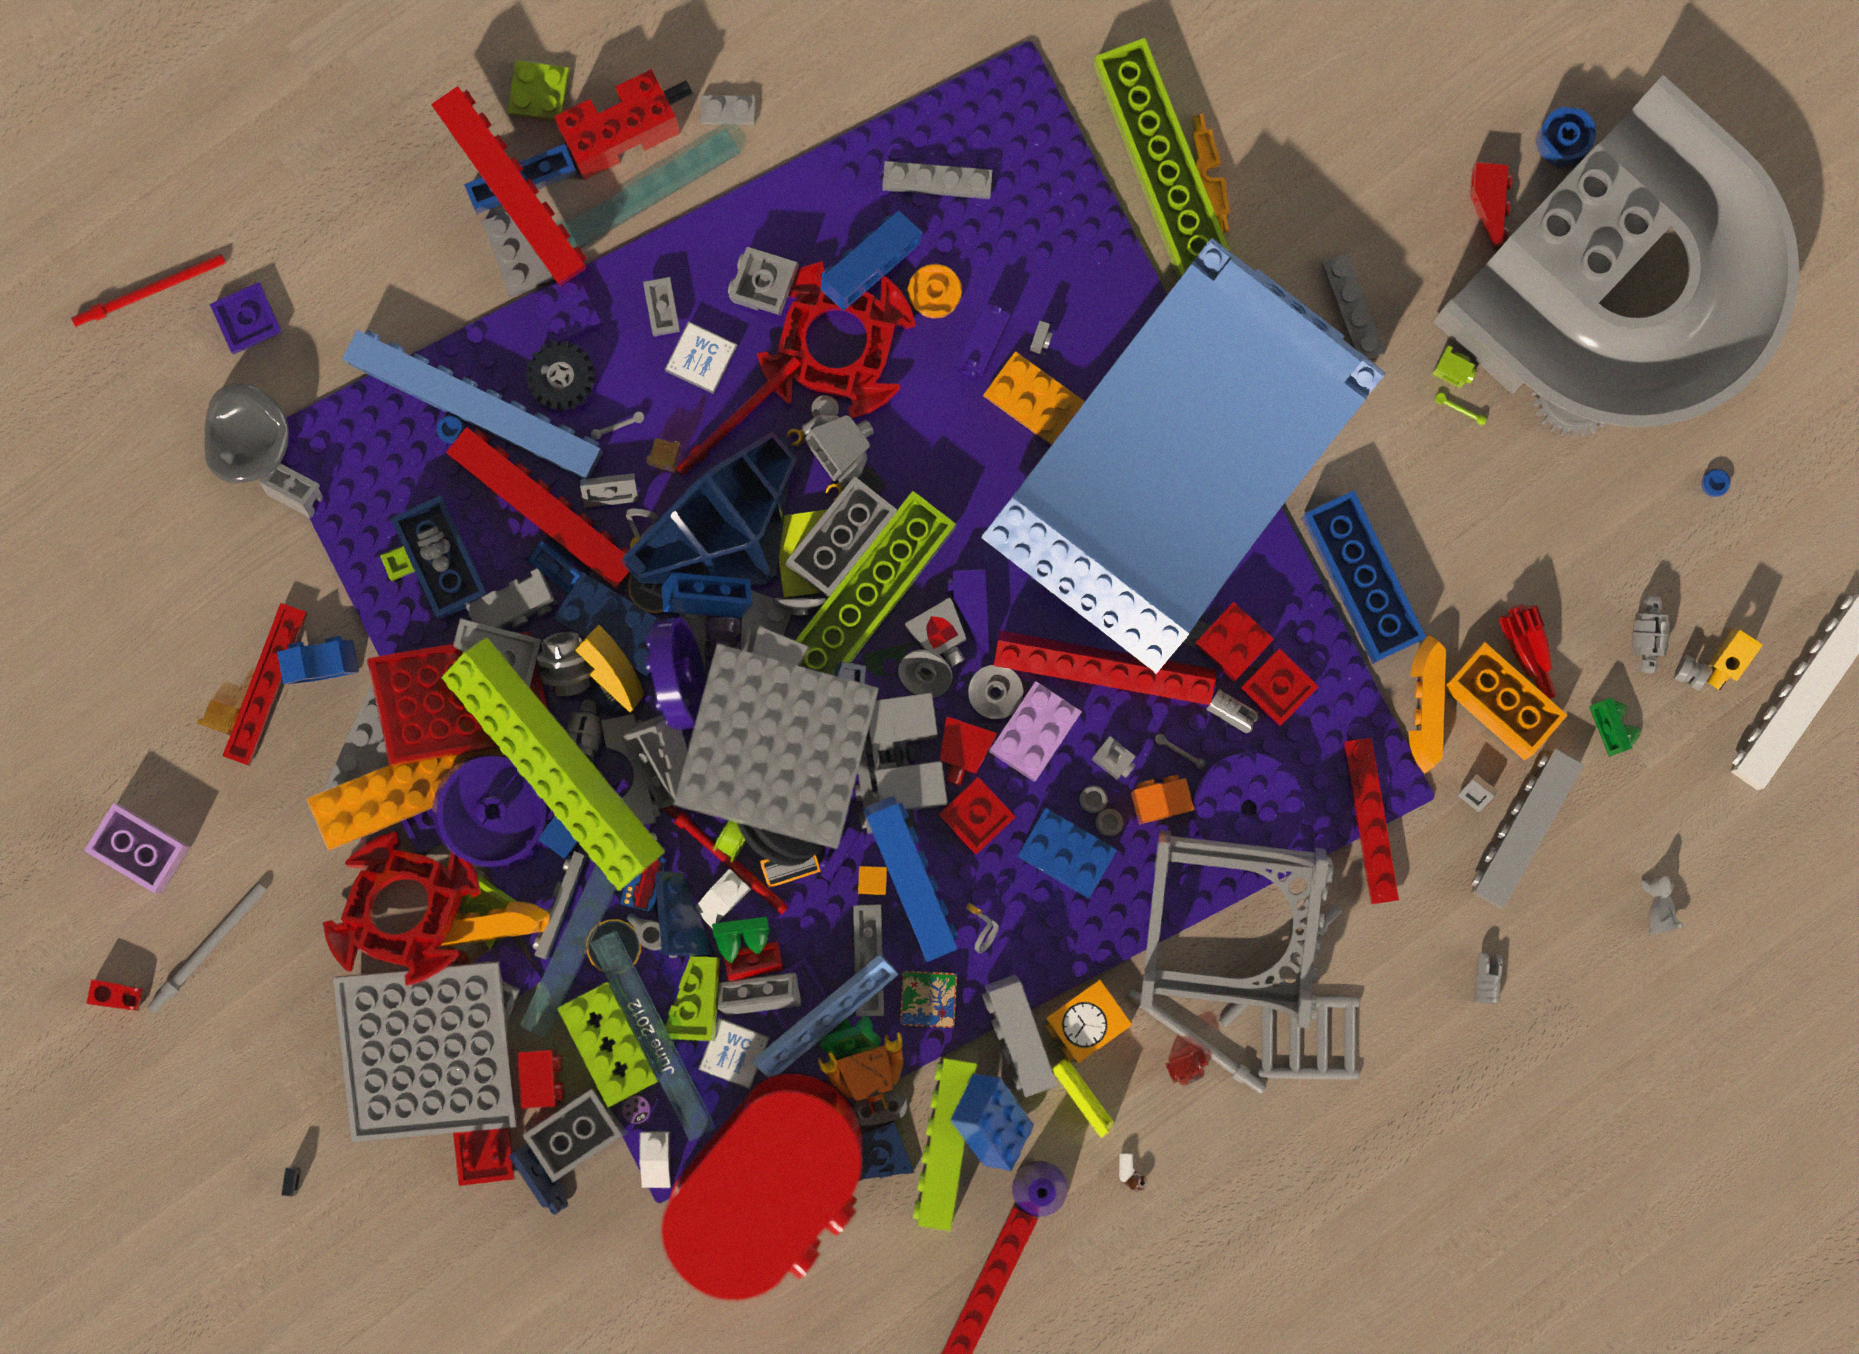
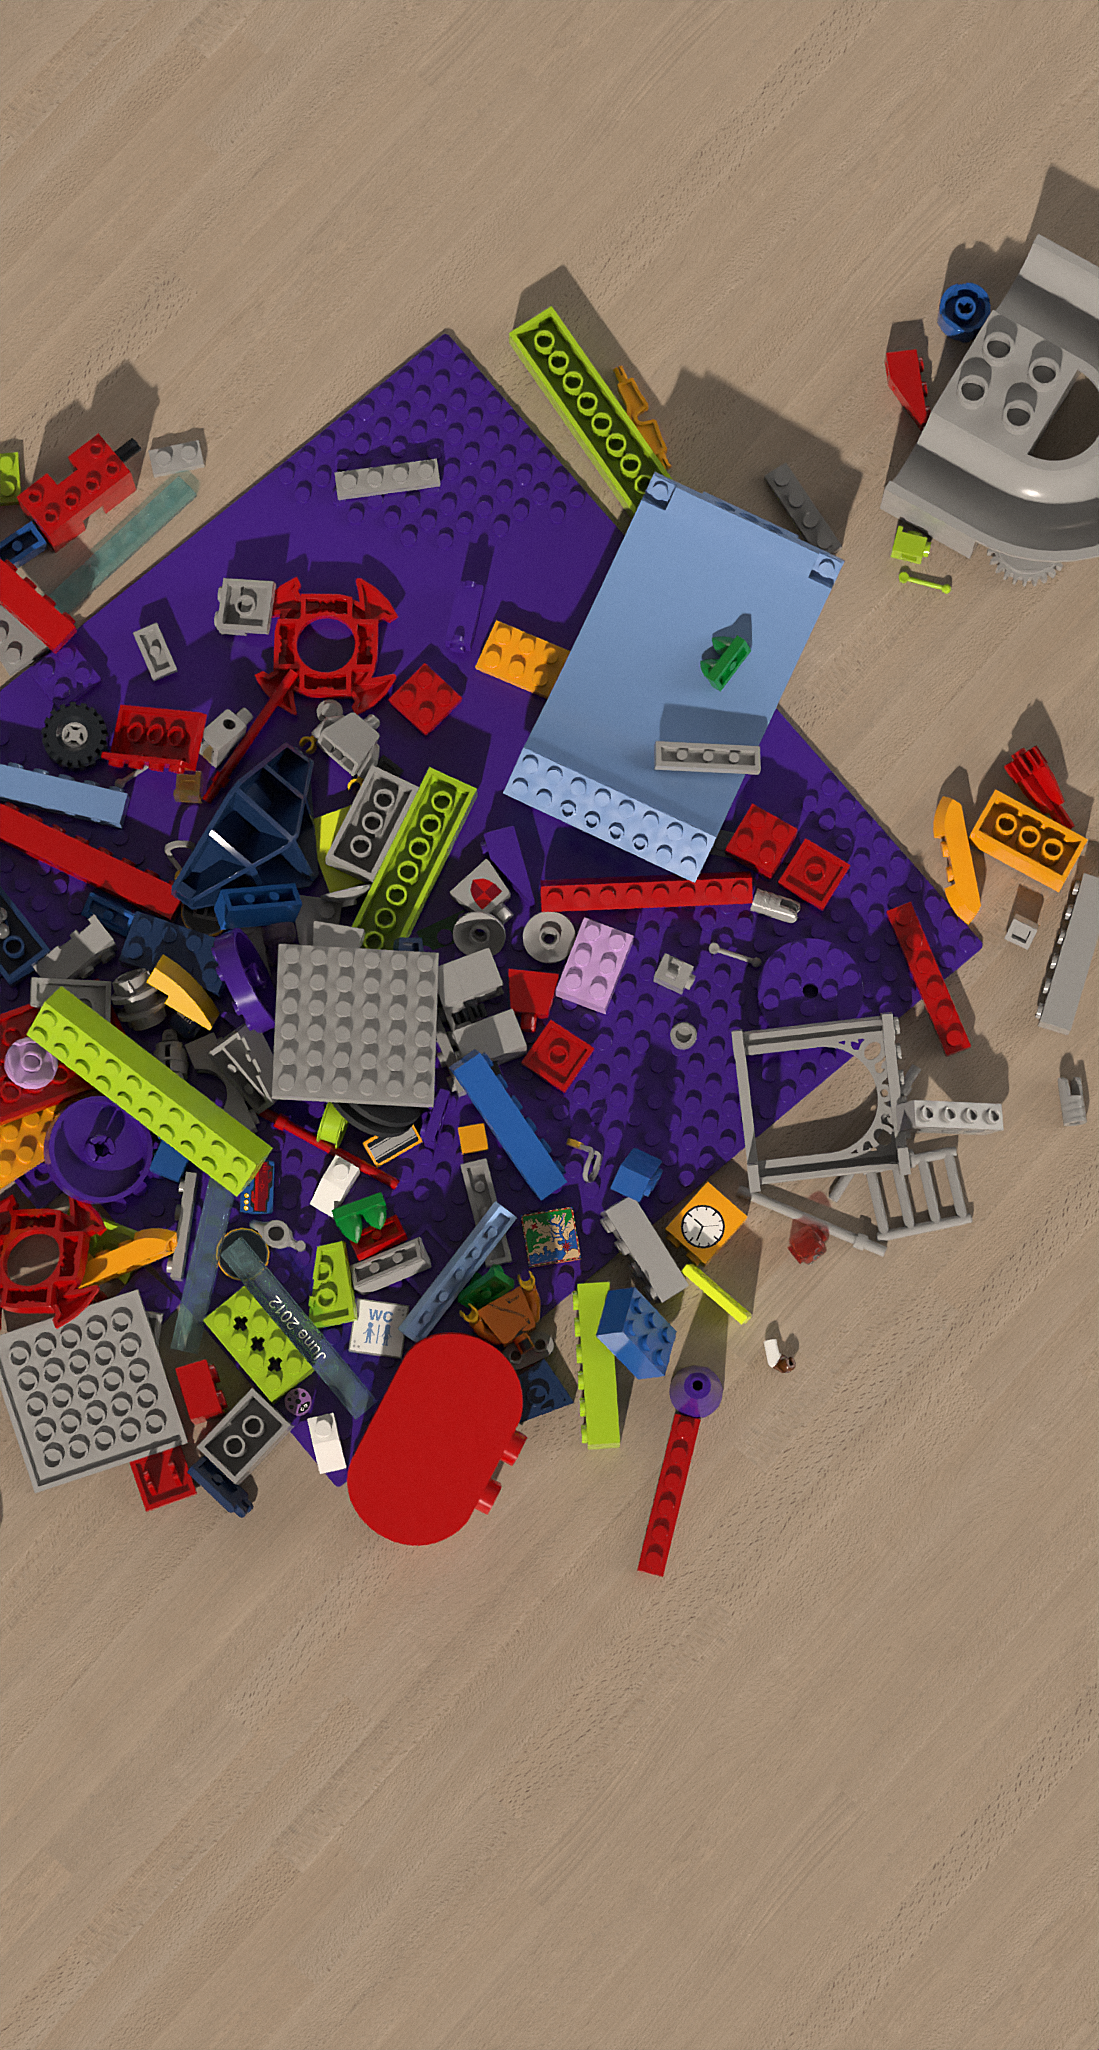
camera: 10 degrees left, 5 degrees down
(438, 709) = (30, 1064): none -> lavender tile
(609, 490) = (144, 832): light grey plate -> none
(642, 399) = (156, 739): none -> red bracket
(678, 918) = (298, 1213): dark blue wing -> none
(701, 357) = (203, 689): white tile -> none
(703, 415) = (224, 735): none -> light grey torso
(870, 260) = (341, 565): blue brick -> none
(925, 417) = (425, 699): none -> red plate
(934, 291) = (408, 581): light orange tile -> none
(1030, 961) = (637, 1175): none -> blue brick
(1042, 338) = (518, 602): light grey plate -> none
(1067, 853) = (649, 1071): blue brick -> none
(1093, 799) = (663, 1017): light grey tile -> none
(1161, 800) = (727, 1003): orange brick -> none
(1198, 547) = (707, 757): none -> light grey plate
(1248, 444) = (732, 655): none -> green tile
(1360, 971) = (949, 1117): none -> light grey brick
(1363, 577) = (869, 756): blue brick -> none

